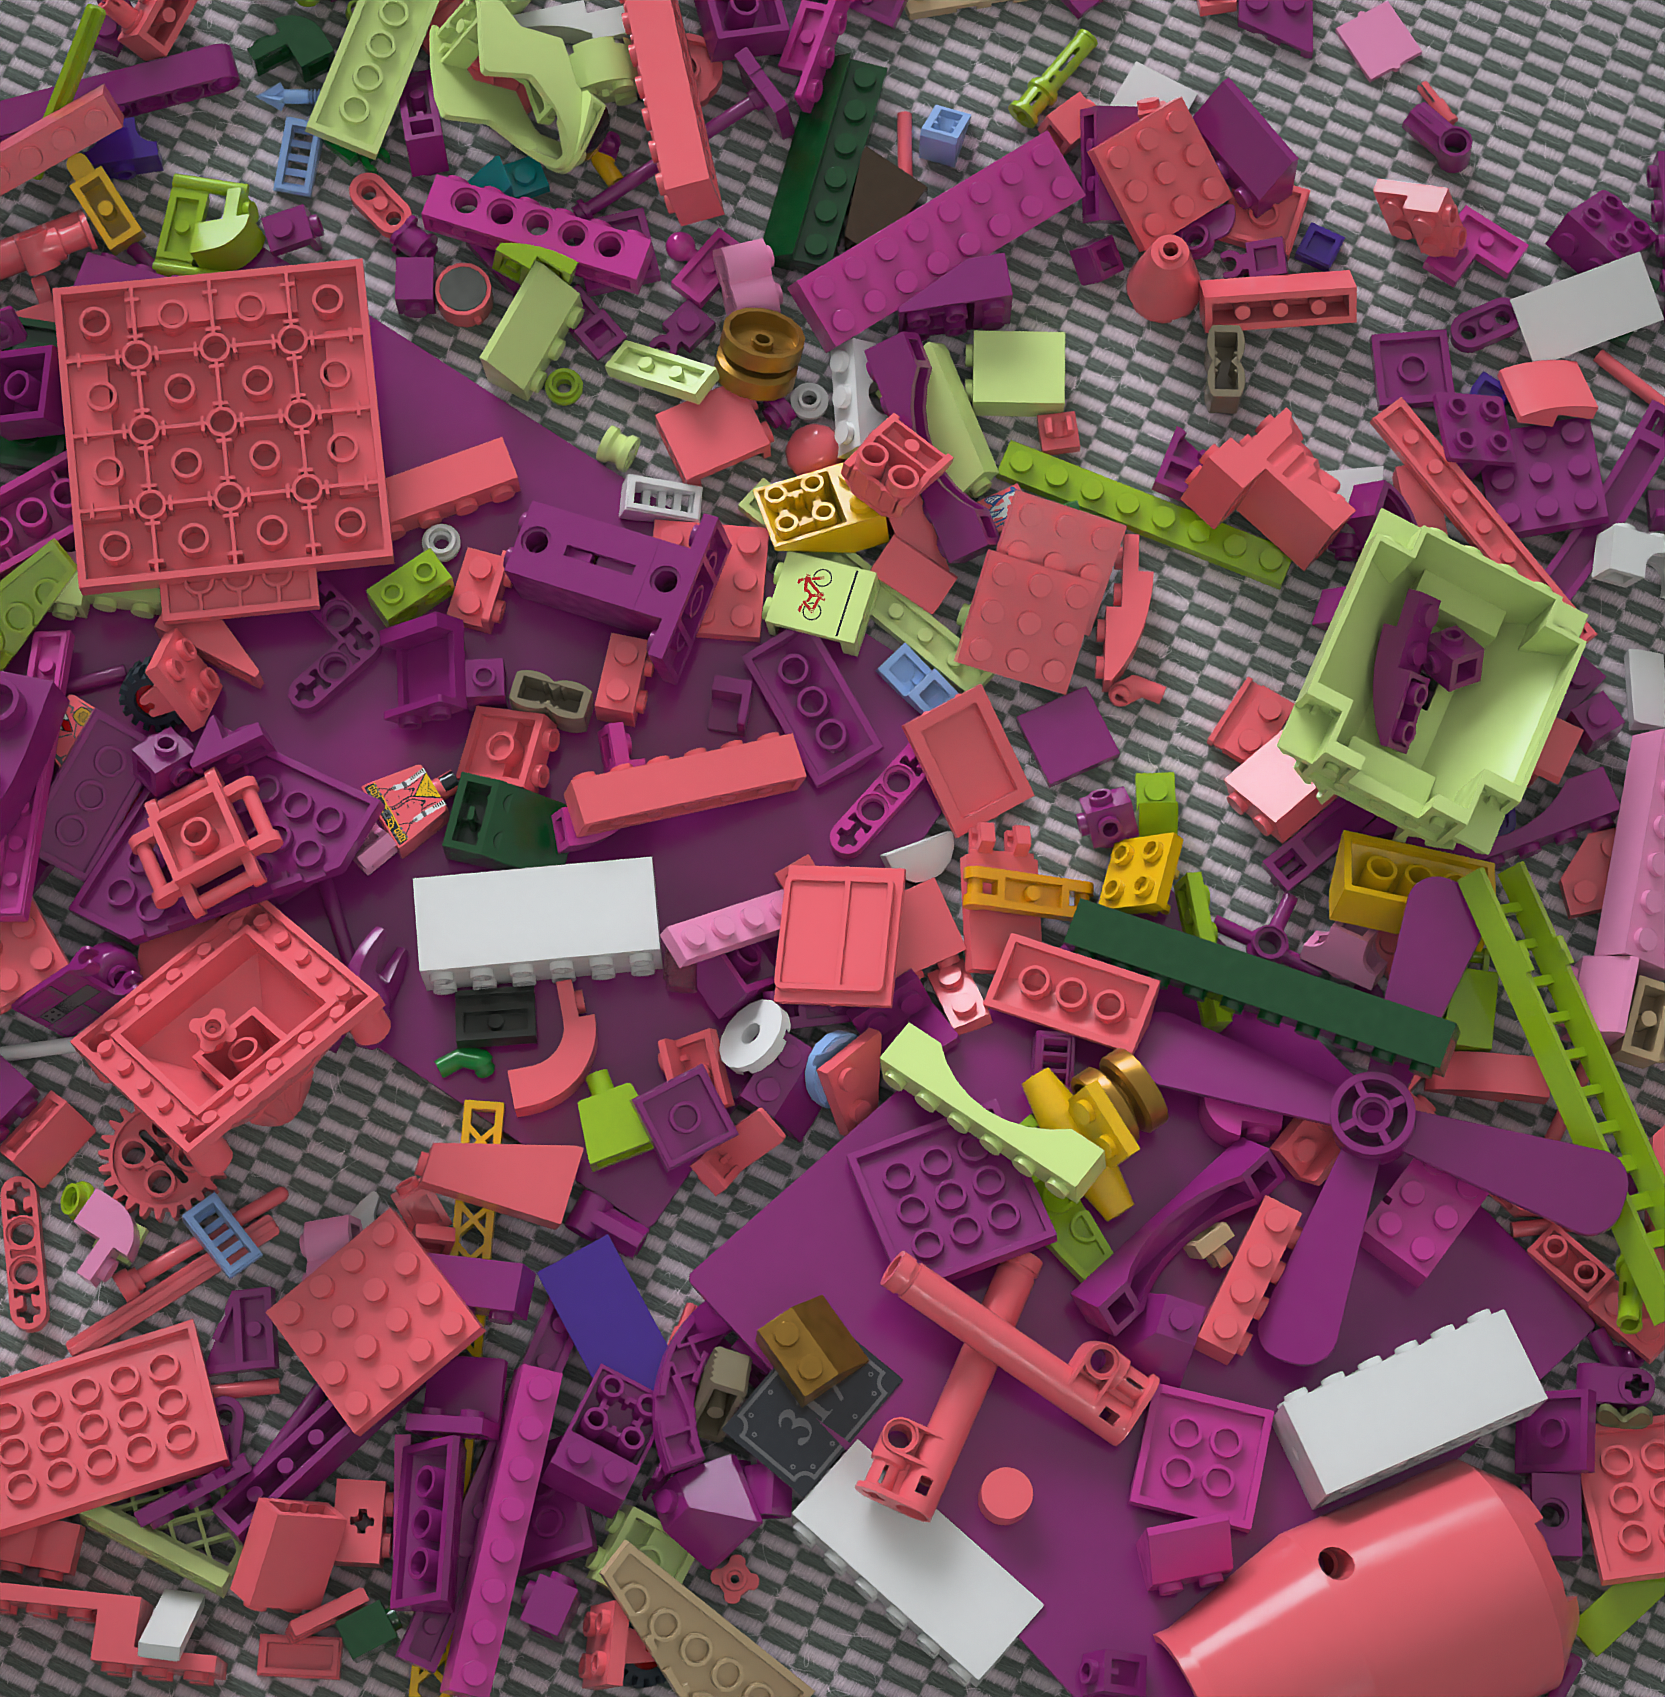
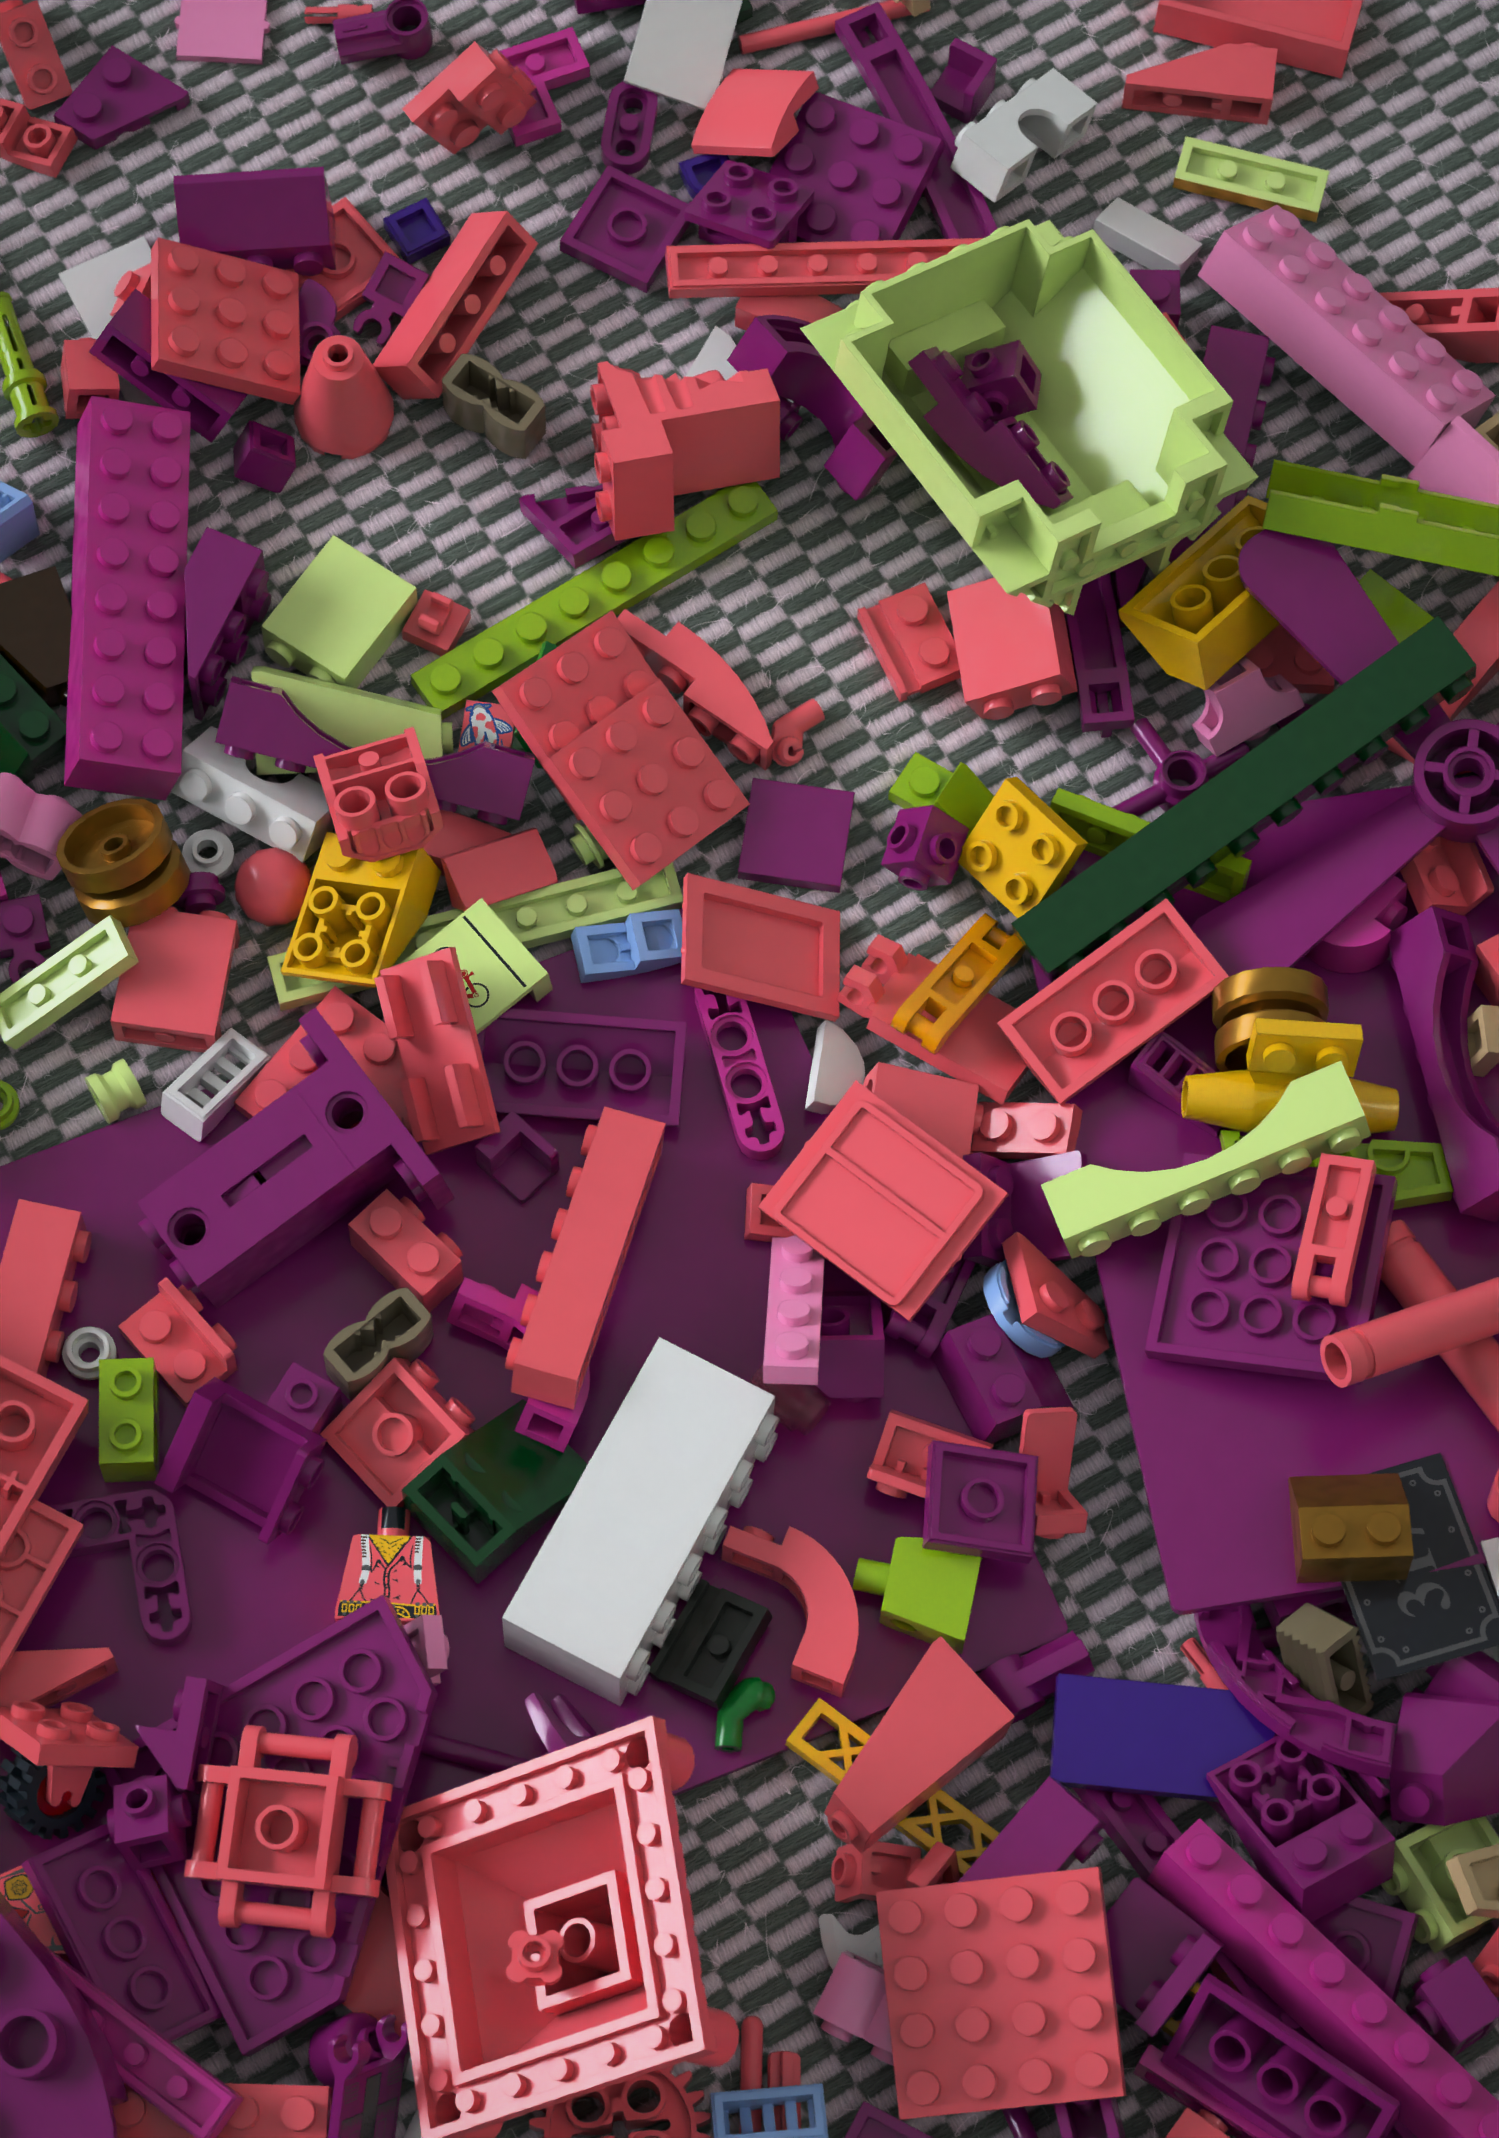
camera: 60 degrees left, 5 degrees down
(736, 634) = (439, 1050): none -> coral brick
(737, 1042) = (911, 1373): white tile -> none
(991, 1217) = (1334, 1228): none -> coral plate
(1587, 875) = (1315, 421): coral plate -> none

